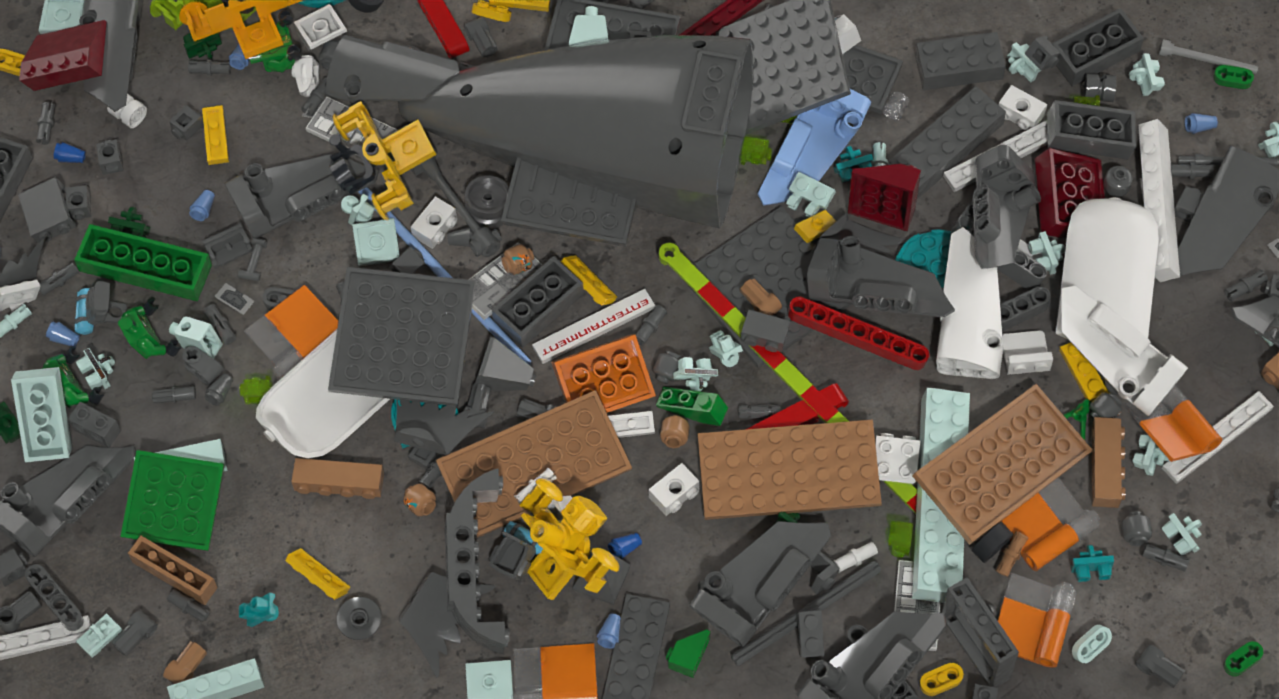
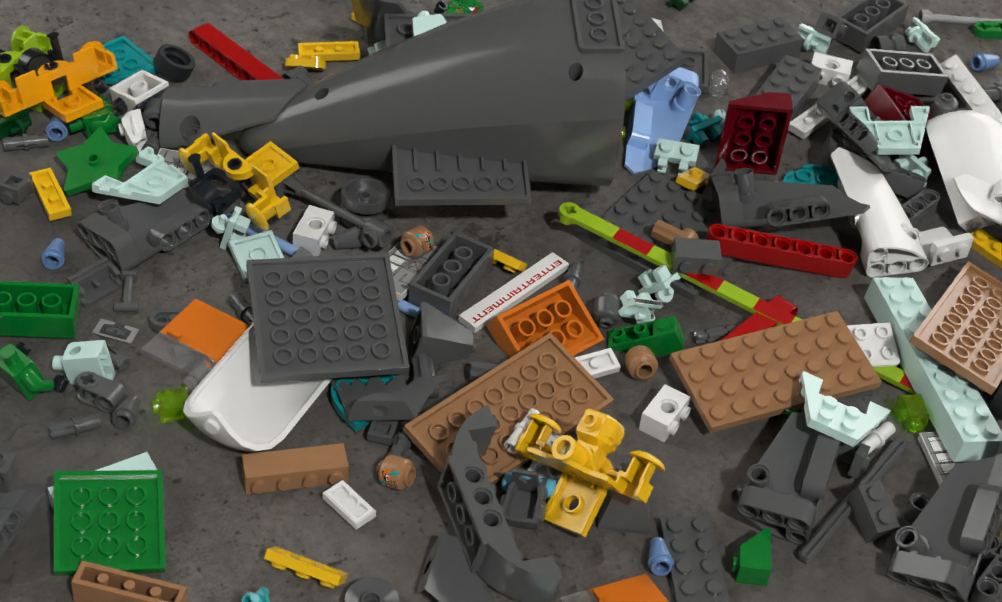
camera: 25 degrees left, 20 degrees down
(260, 110) = (93, 160): none -> green plate
(302, 147) = (150, 185): none -> light aqua wing
(371, 522) = (349, 504): none -> white plate
(814, 540) = (835, 418): none -> light aqua wing
(1034, 220) = (896, 136): none -> light aqua wing

